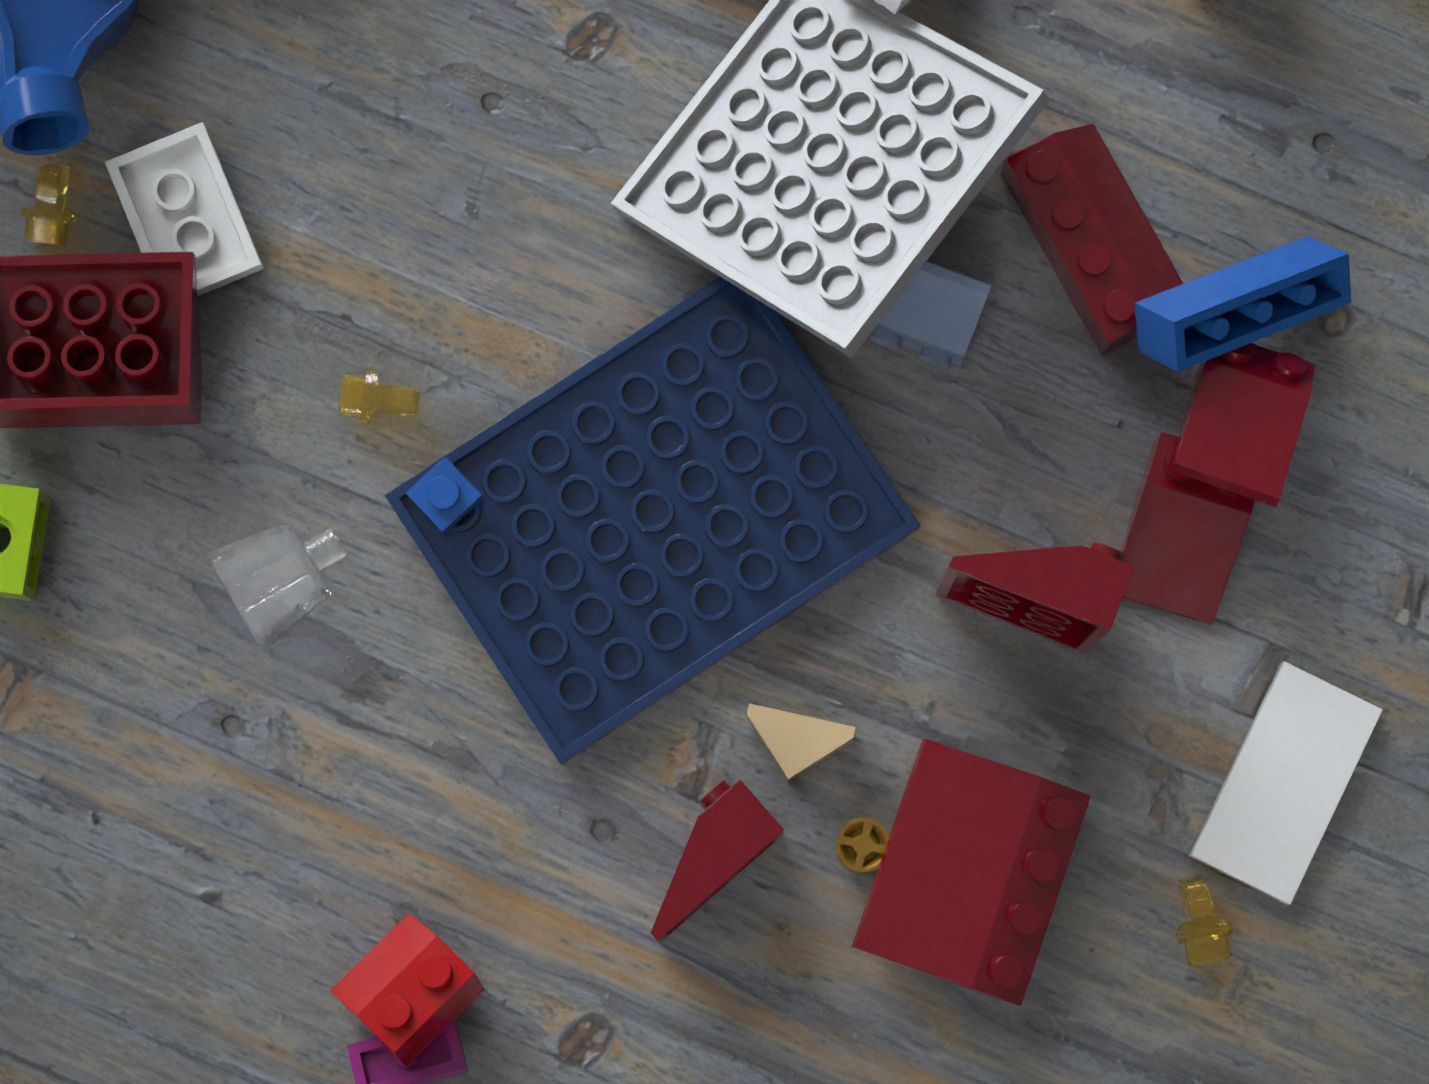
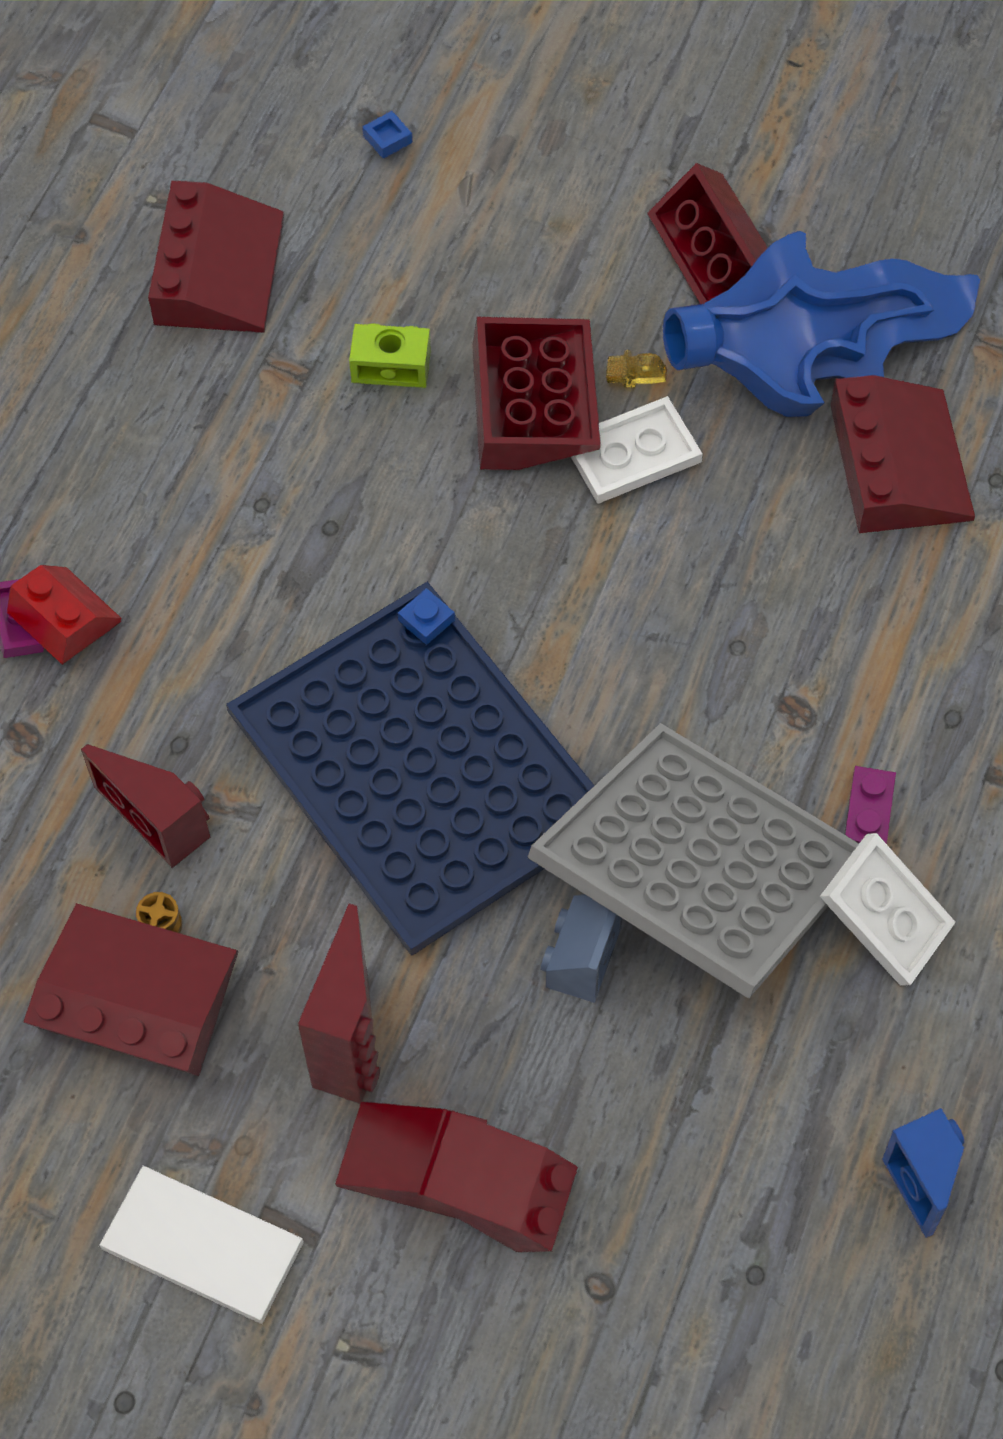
camera: 85 degrees right, 20 degrees down
(276, 577) = (364, 518): clear torso -> none
(364, 395) = (502, 568): clear yellow piece -> none
(796, 739) = (241, 865): tan slope -> none
(1090, 230) = (657, 1081): dark red slope -> none
(1204, 933) = (82, 1177): clear yellow piece -> none
(1242, 303) = (598, 1181): blue brick -> none

